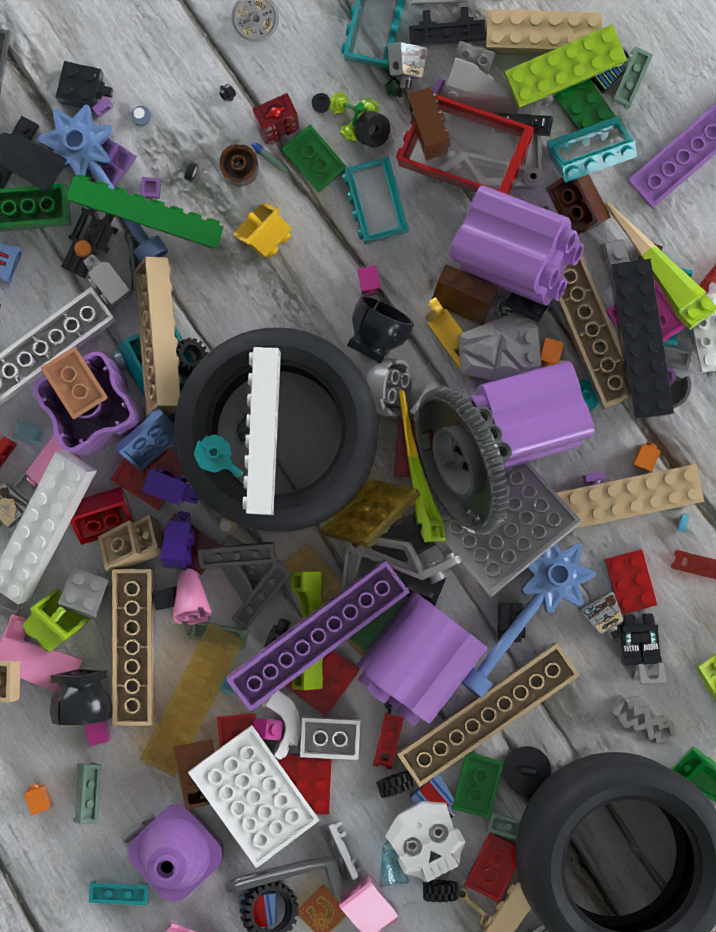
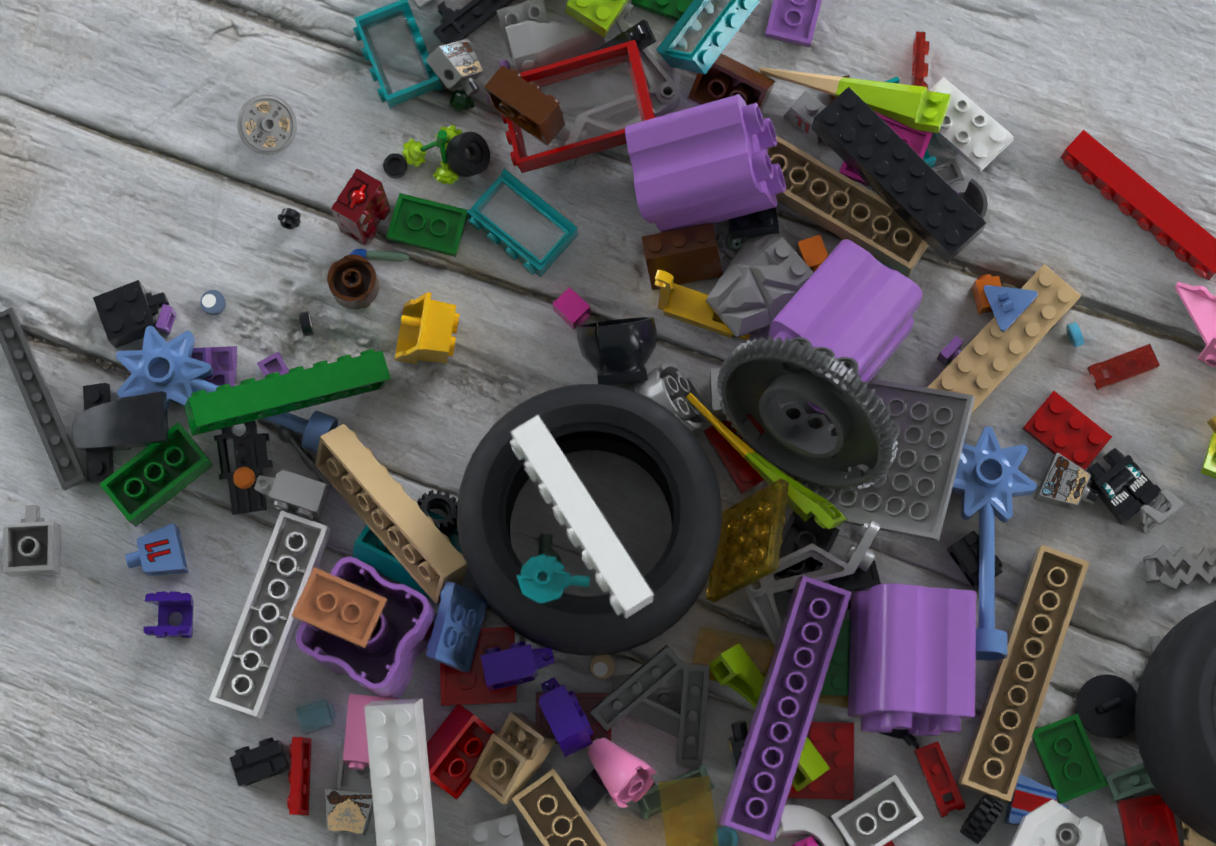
camera: 40 degrees left, 10 degrees down
(652, 474) = (1008, 303): none -> medium blue piece

